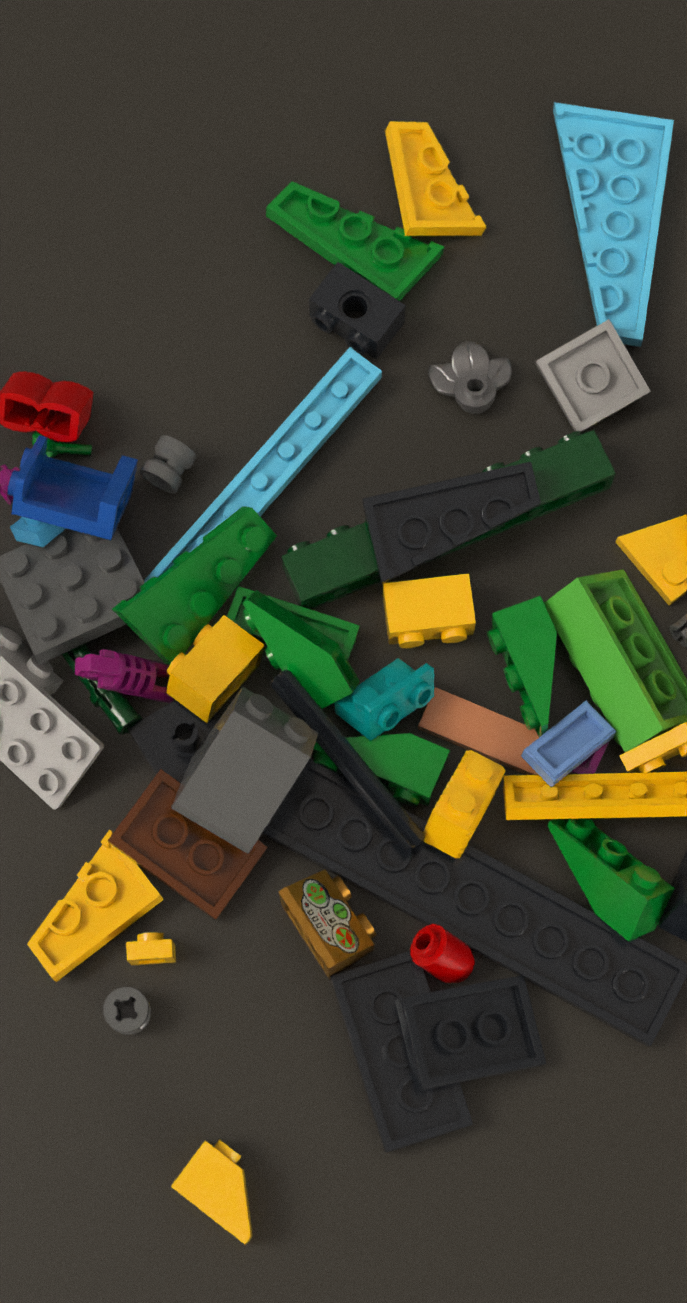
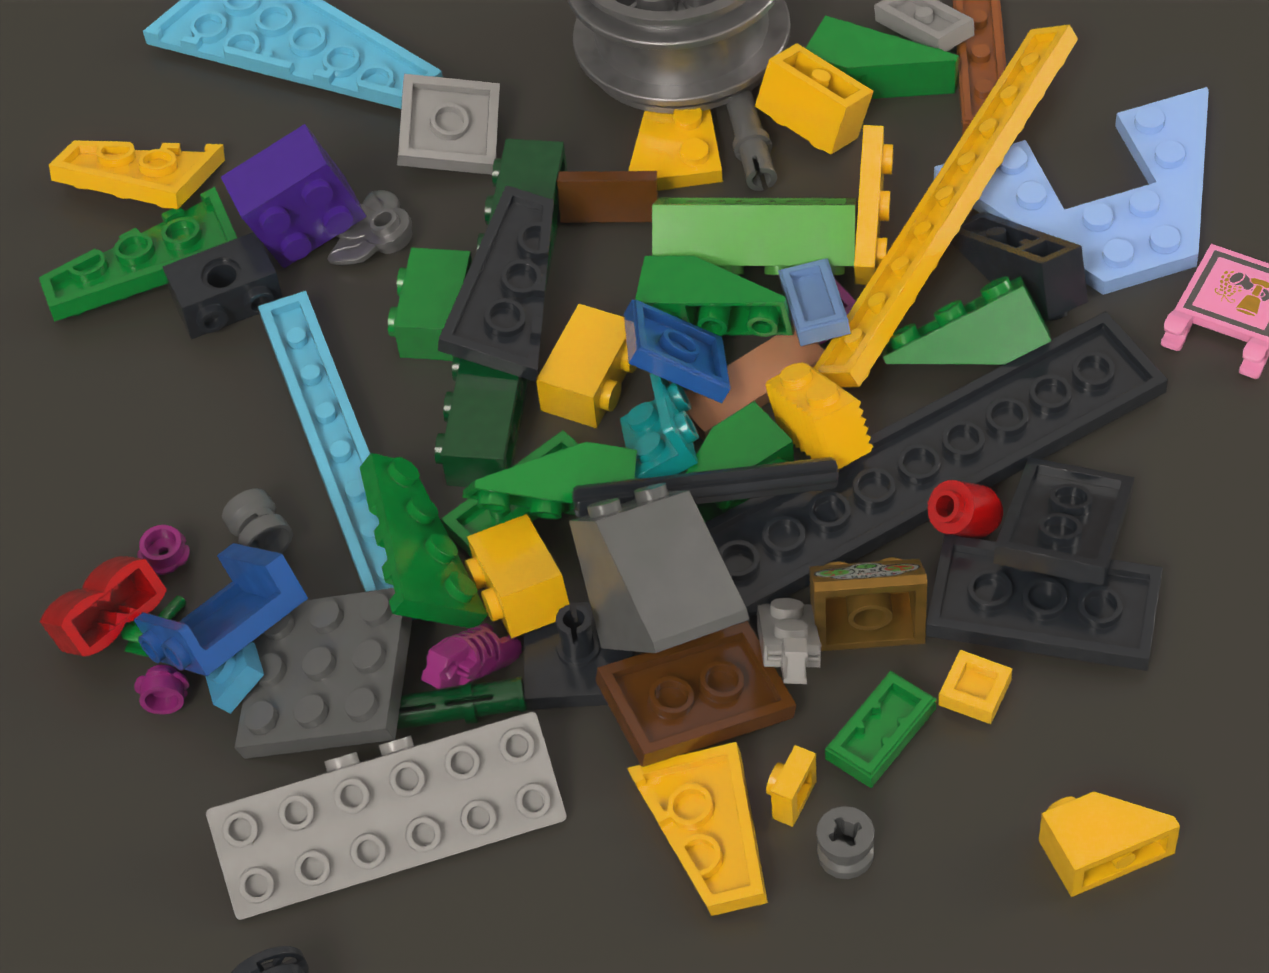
camera: 55 degrees left, 20 degrees down
(119, 403) = (162, 539): none -> magenta plate
(232, 987) = (880, 729): none -> green plate
(255, 887) = (788, 638): none -> light grey hinge
(301, 1036) = (975, 686): none -> yellow plate
(422, 461) = (426, 299): none -> green brick
(445, 314) = (293, 196): none -> dark purple brick
(460, 669) = (676, 350): none -> blue tile
(592, 532) = (606, 196): none -> reddish brown tile

